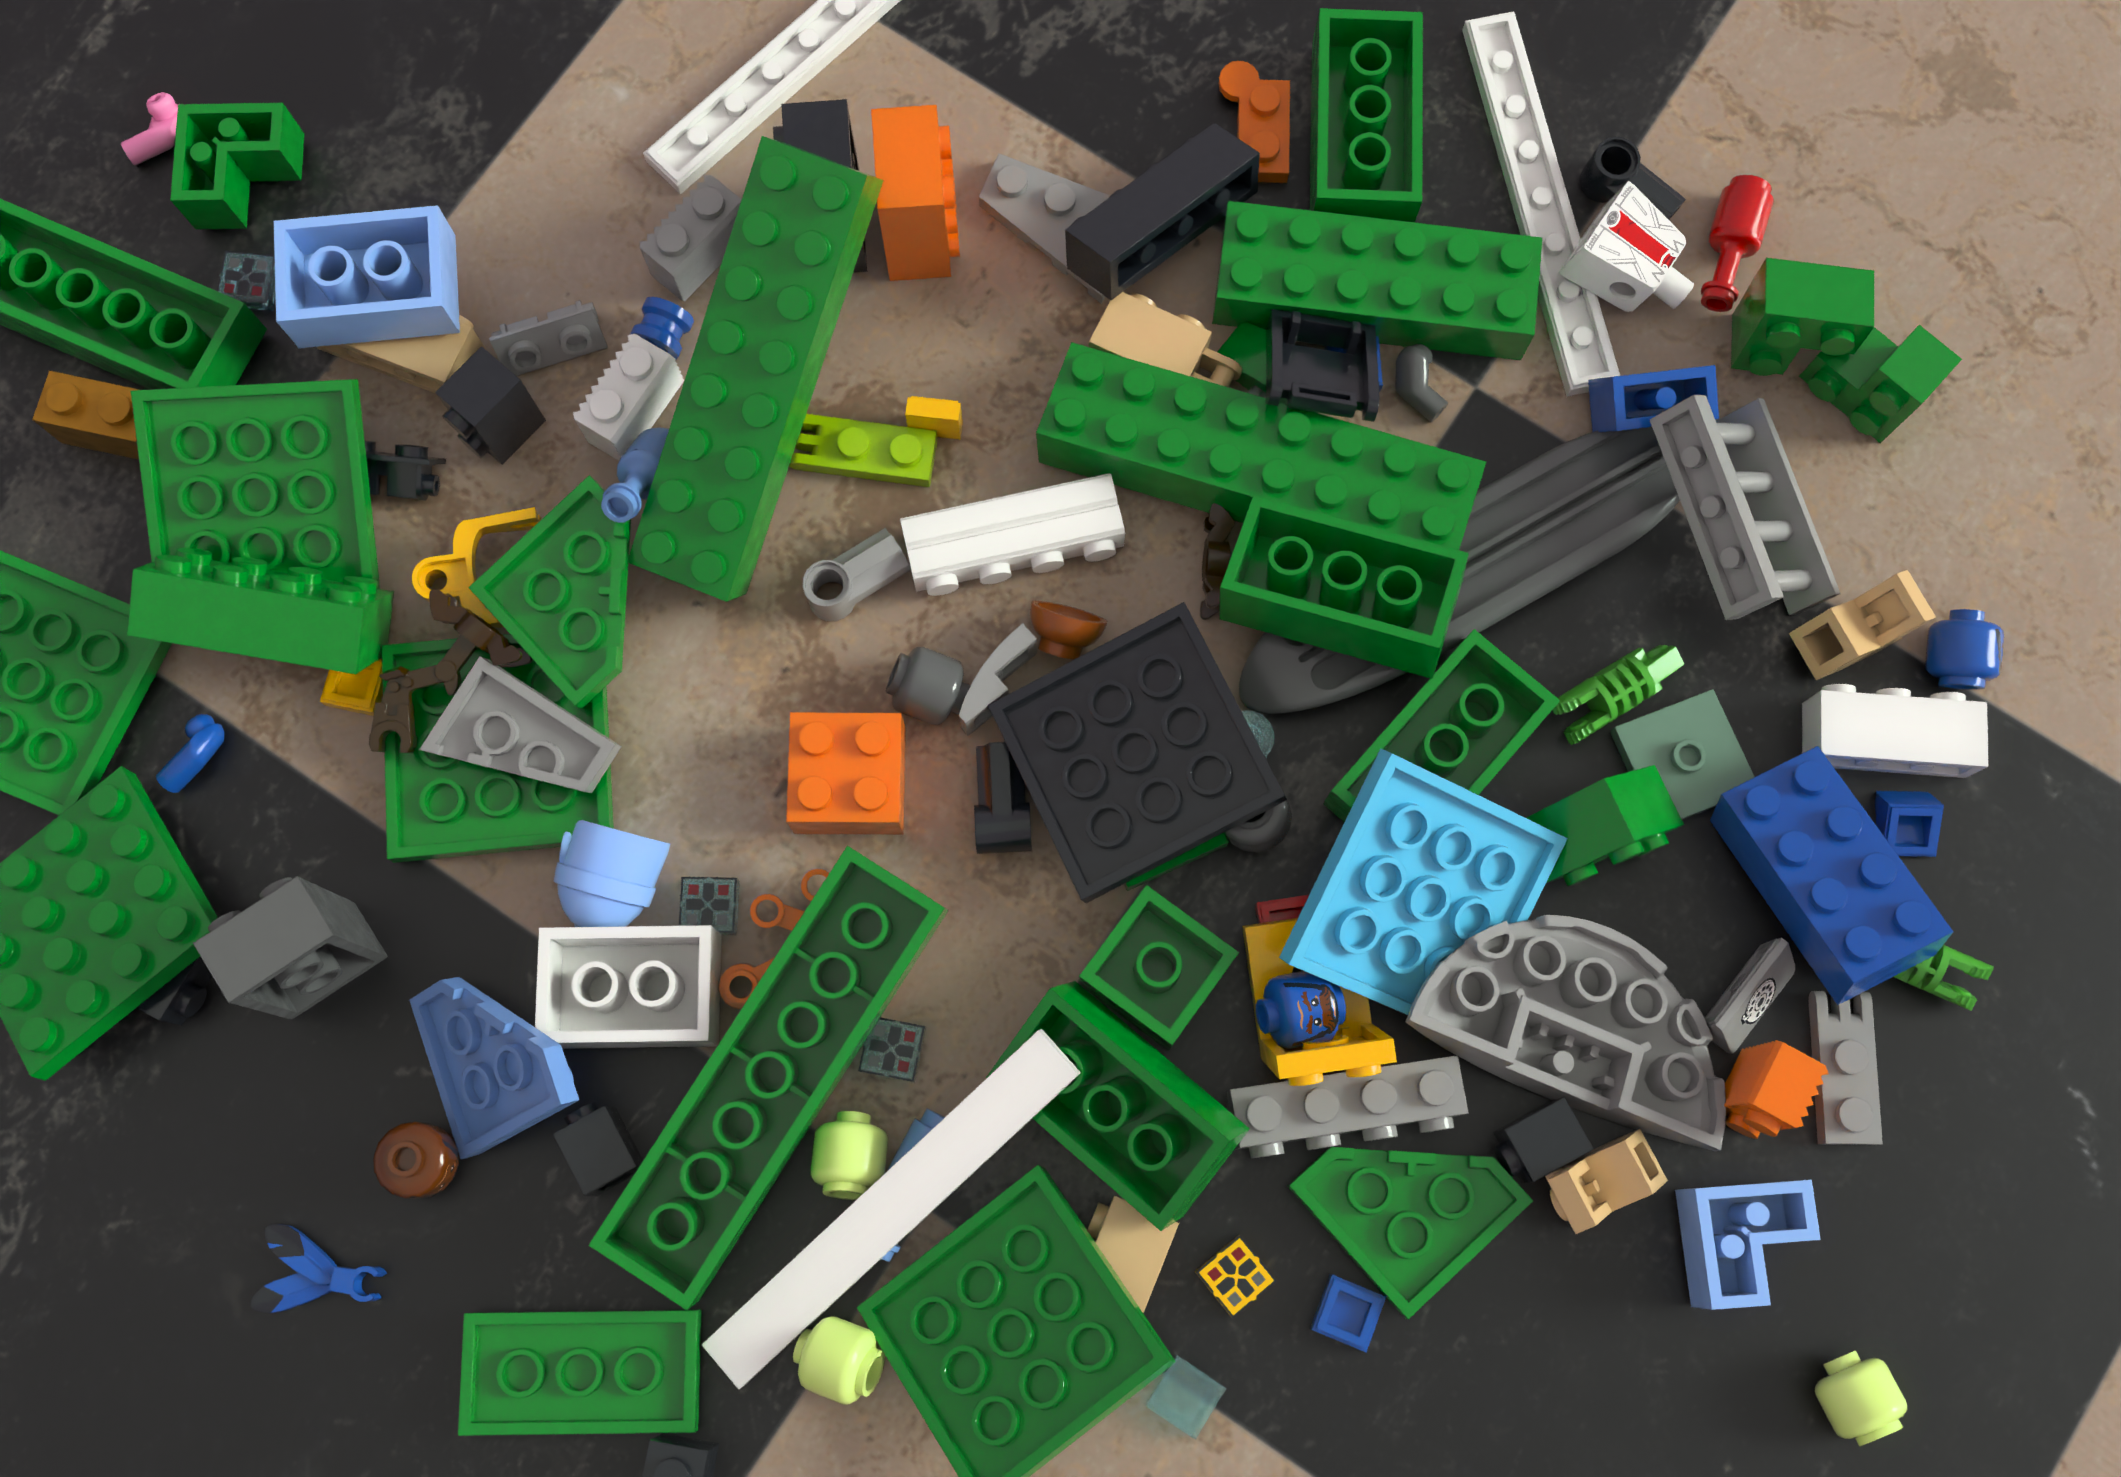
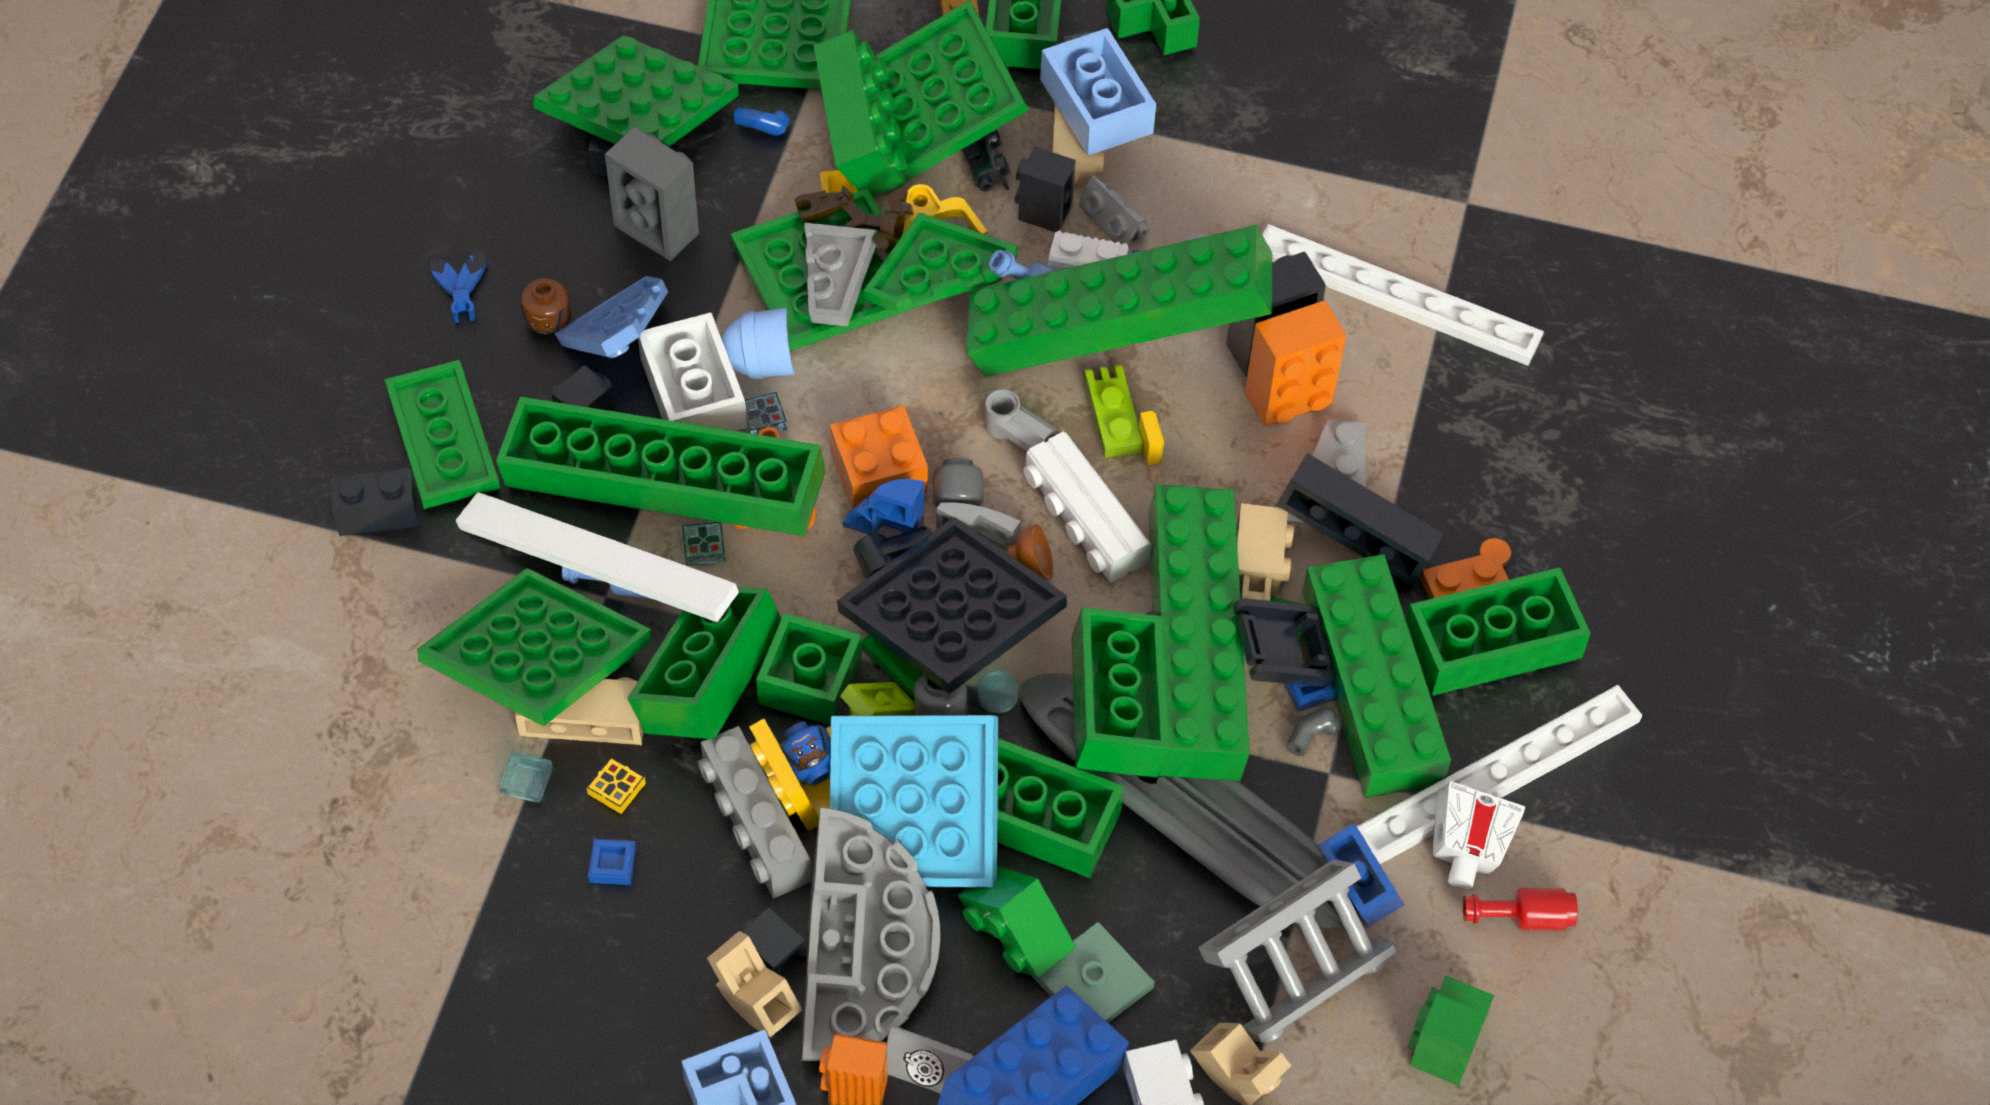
camera: 70 degrees right, 20 degrees down
(838, 1360) = (489, 565): yellowish green head -> none
(848, 1155) = (626, 526): yellowish green head -> none
(952, 771) = (893, 505): none -> blue slope
(1239, 893) = (878, 700): none -> lime plate
(1409, 1214) = (691, 876): green plate -> none
(1617, 689) = (1127, 915): bright green hinge -> none
(1625, 161) = (1534, 827): black piece -> none
(1797, 308) = (1469, 947): green brick -> none

